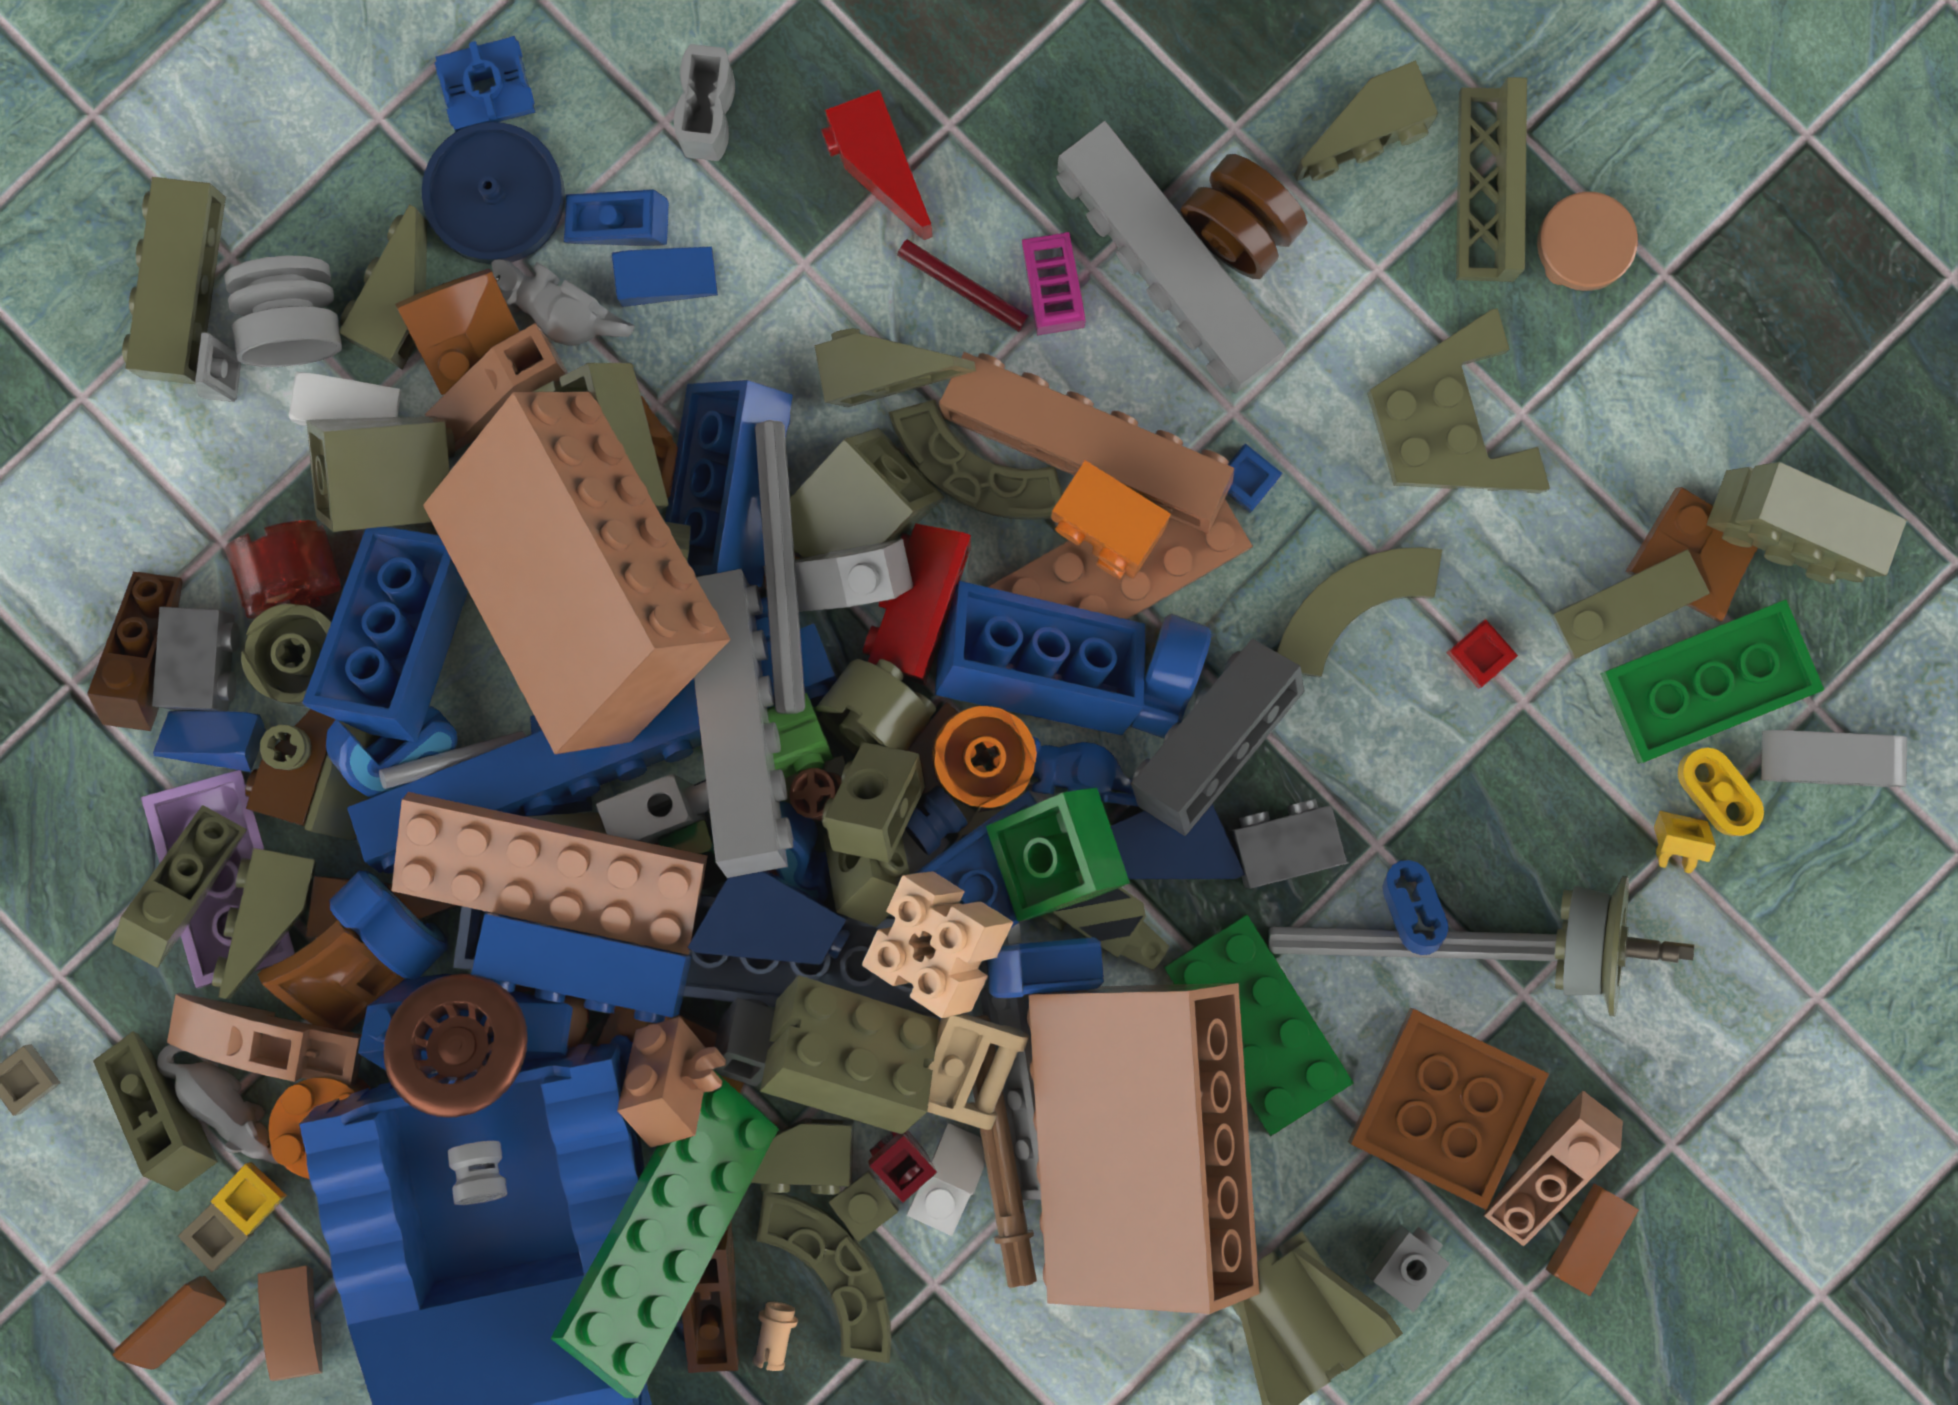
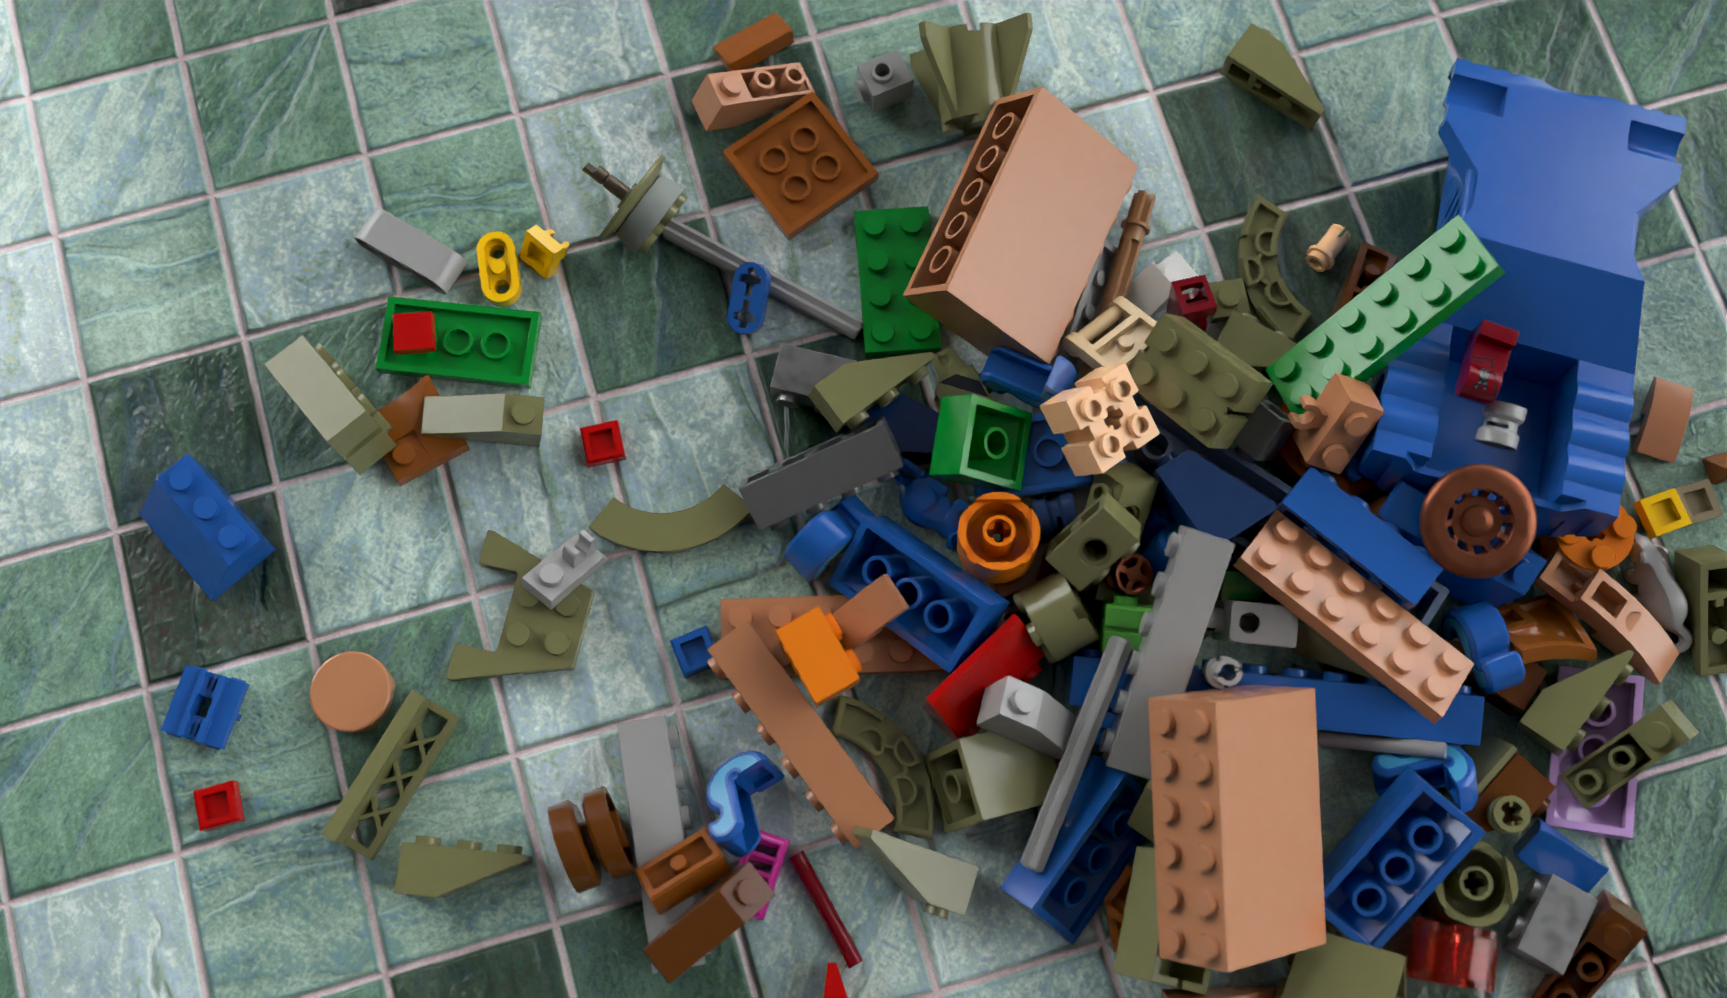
camera: 155 degrees left, 10 degrees down
(527, 1230) = (1485, 362): none -> dark red leg
(669, 721) = (1229, 678): none -> light grey pin
(1075, 196) = (709, 921): none -> reddish brown slope
(1081, 604) = (869, 612): none -> nougat slope
(1118, 333) = (730, 797): none -> blue animal
(1132, 234) = (682, 870): none -> dark orange slope
(1230, 848) = (860, 385): none -> olive slope
(1440, 485) = (564, 569): none -> light grey plate
(1651, 59) = (218, 805): none -> red tile
(1749, 128) = (193, 688): none -> blue piece
(1767, 659) = (414, 333): none -> red tile
(1857, 331) = (204, 526): none -> blue slope

